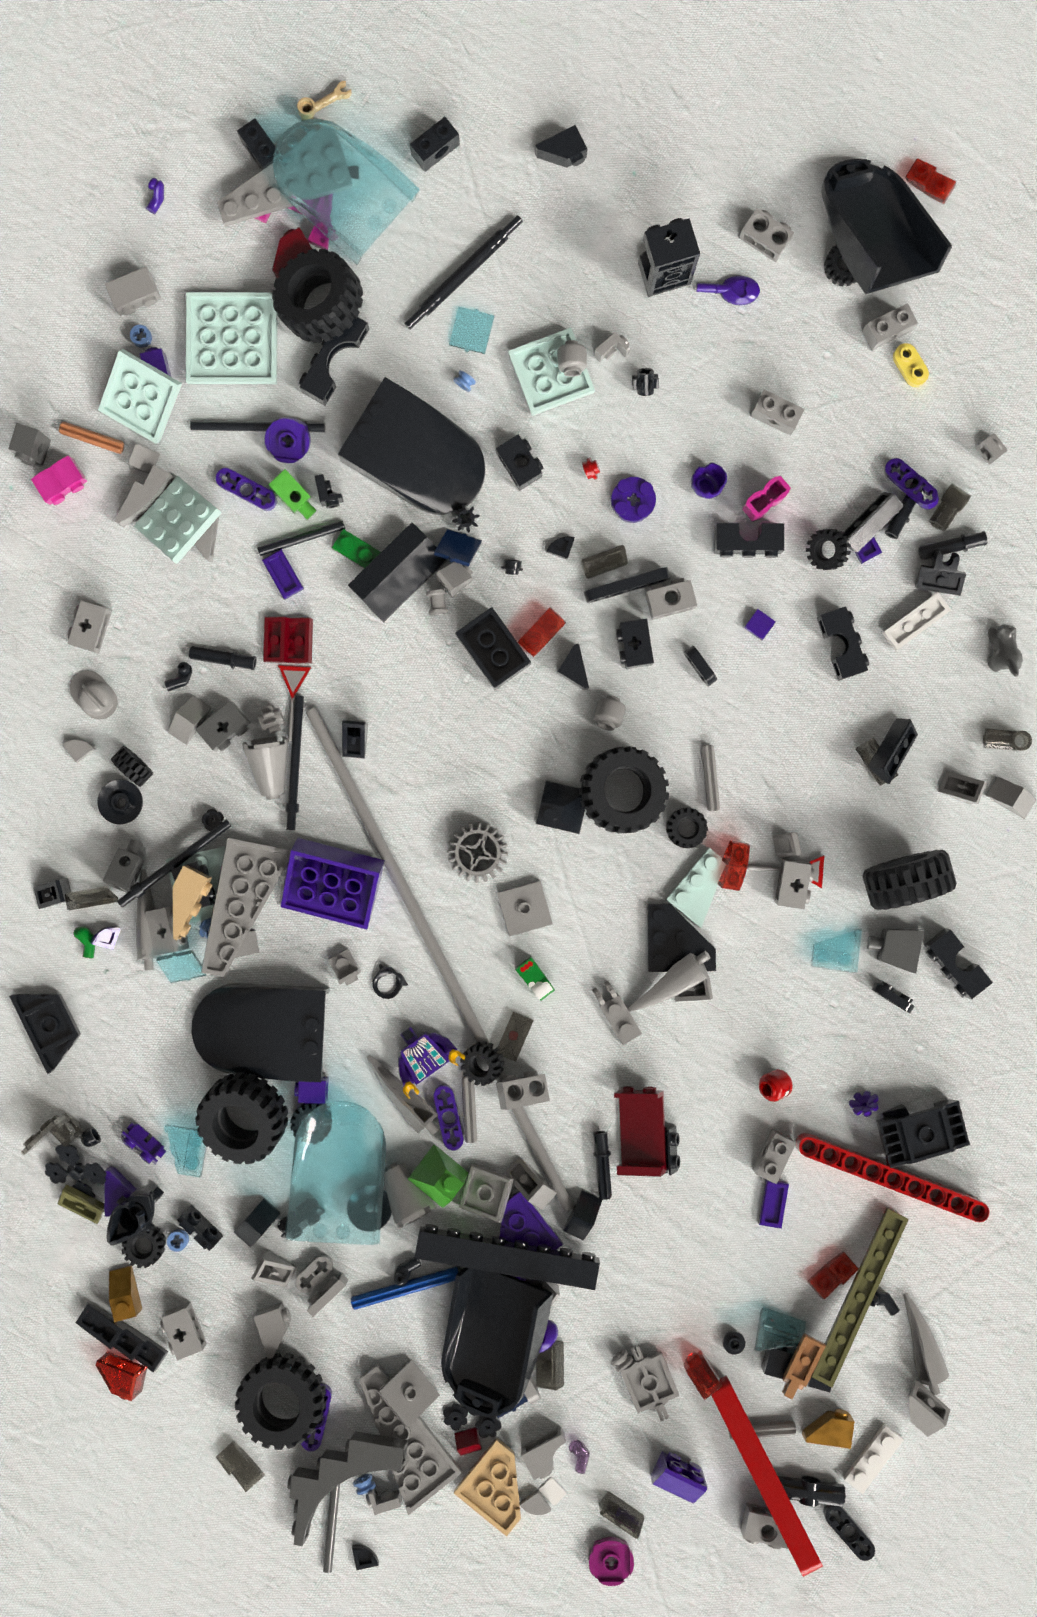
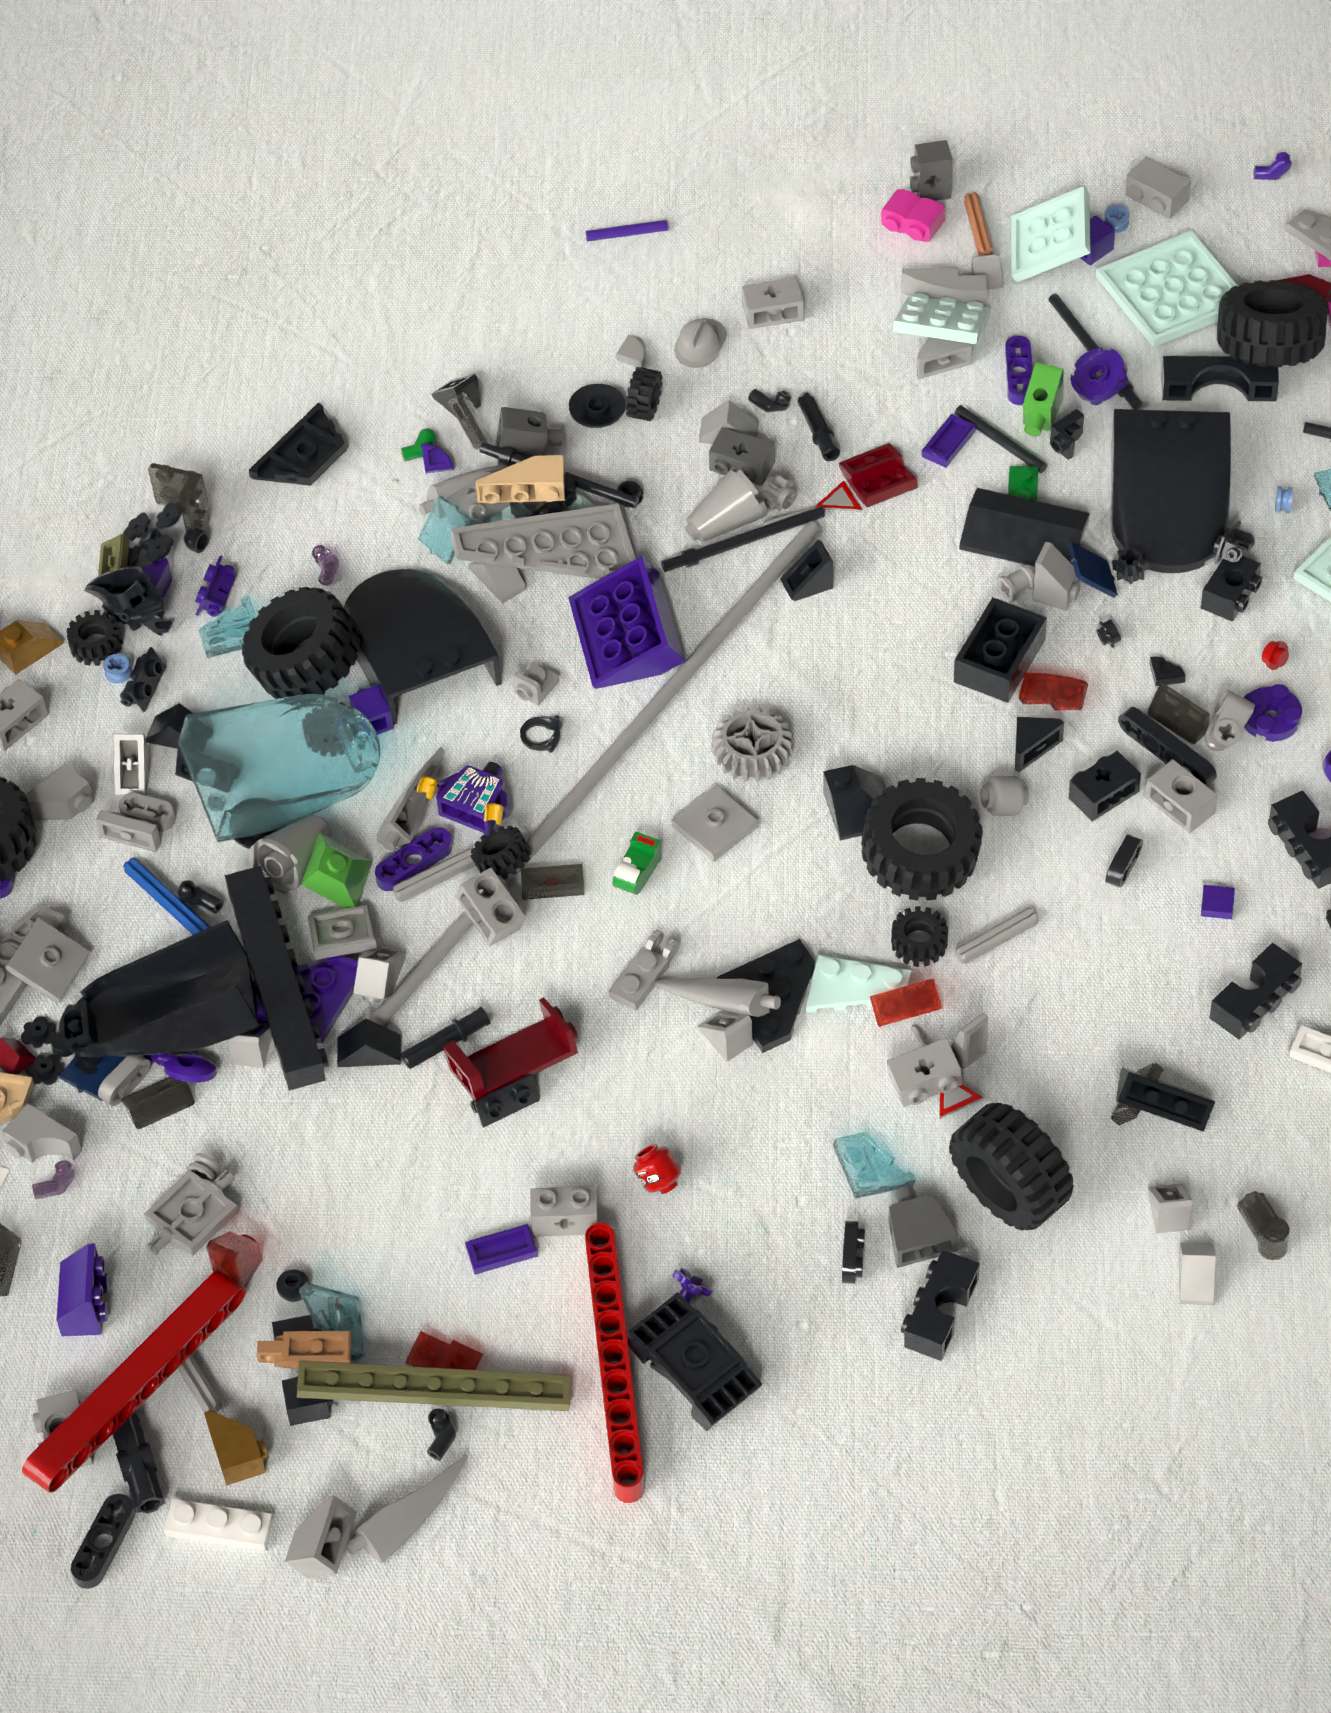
camera: 65 degrees right, 35 degrees down
(161, 1055) = (327, 562): none -> clear purple arm
(486, 437) = (1233, 544): none -> black hinge
(632, 533) = (1230, 717): none -> light grey piece

